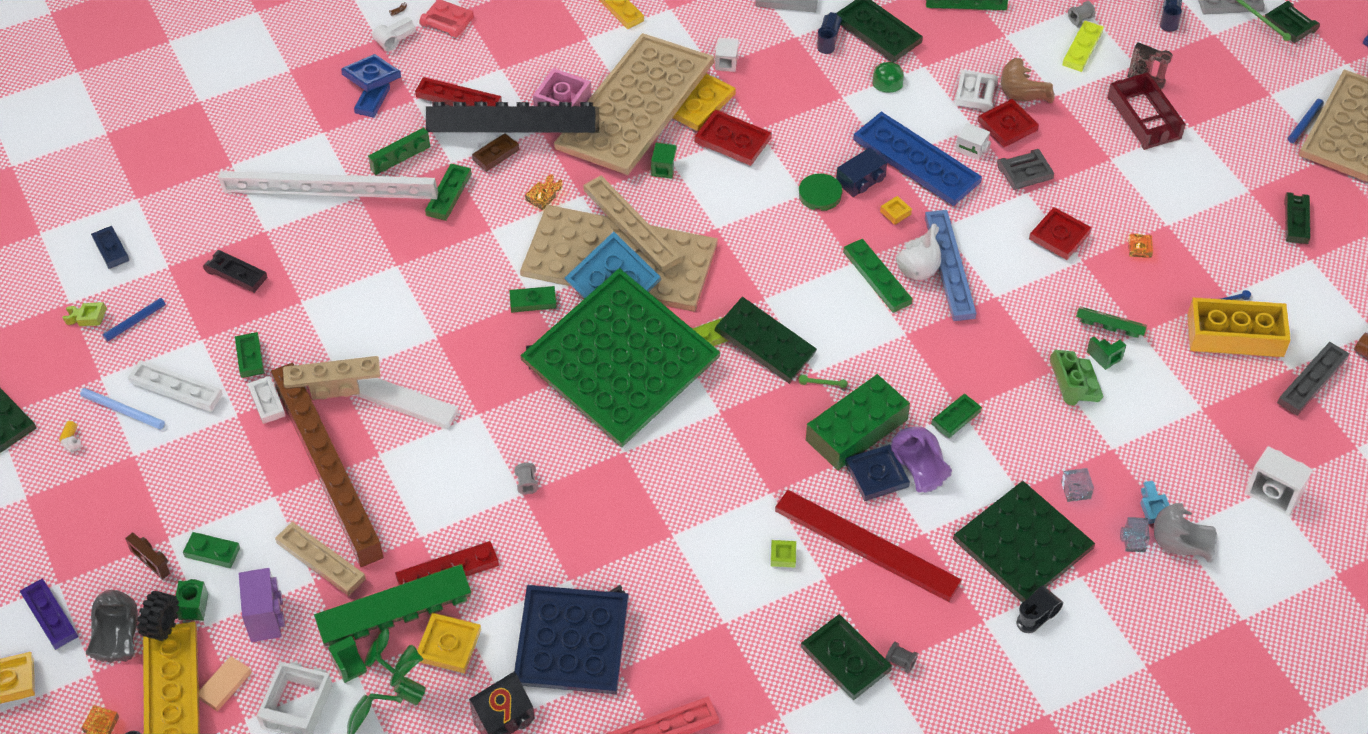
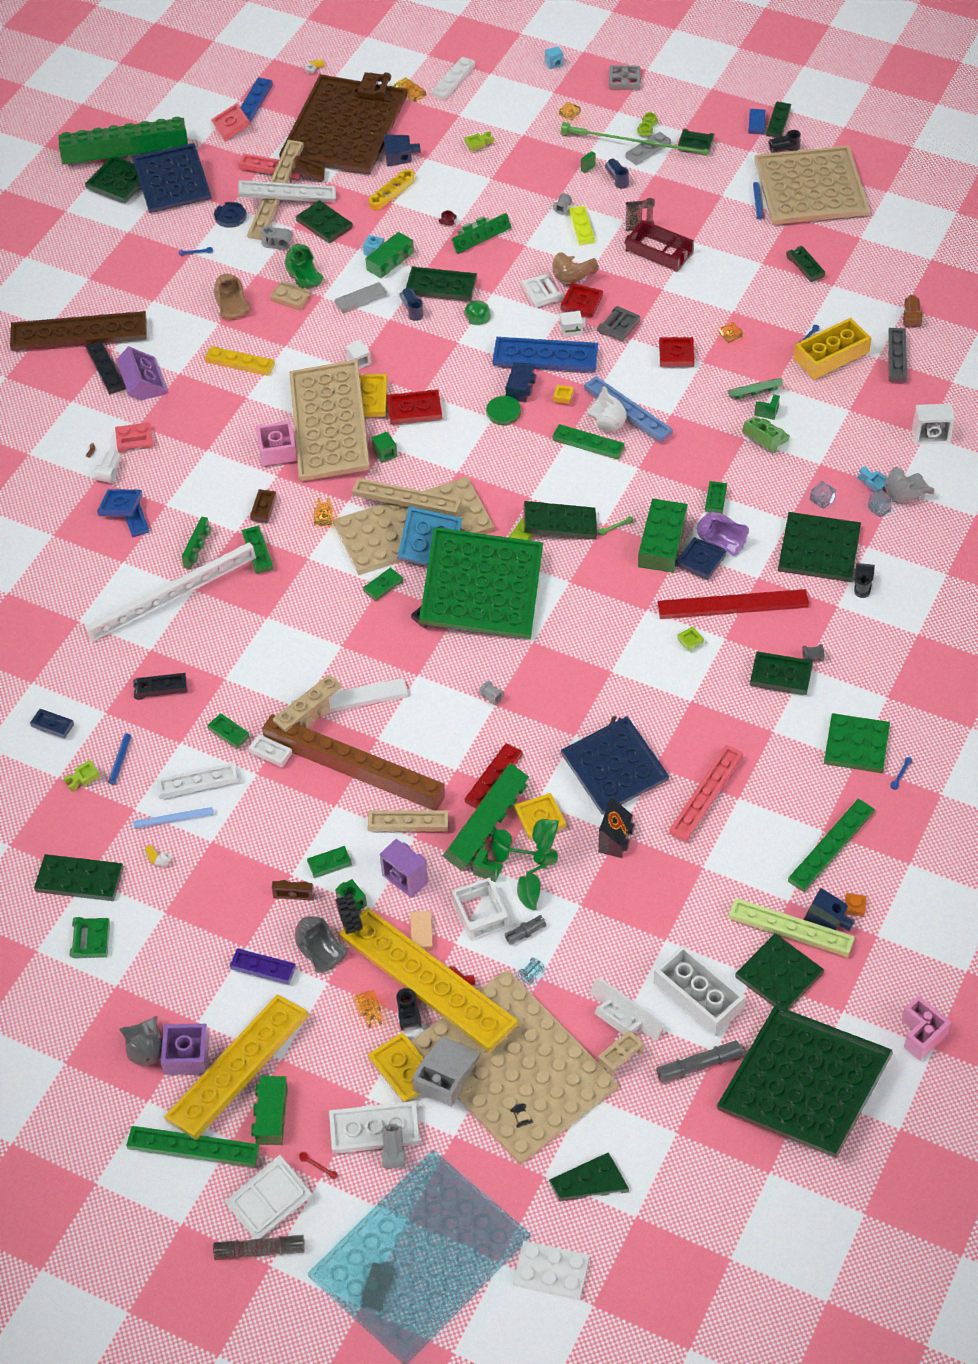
camera: 35 degrees left, 0 degrees up
(445, 92) = (199, 484): red plate -> none
(513, 119) = (260, 475): black brick -> none

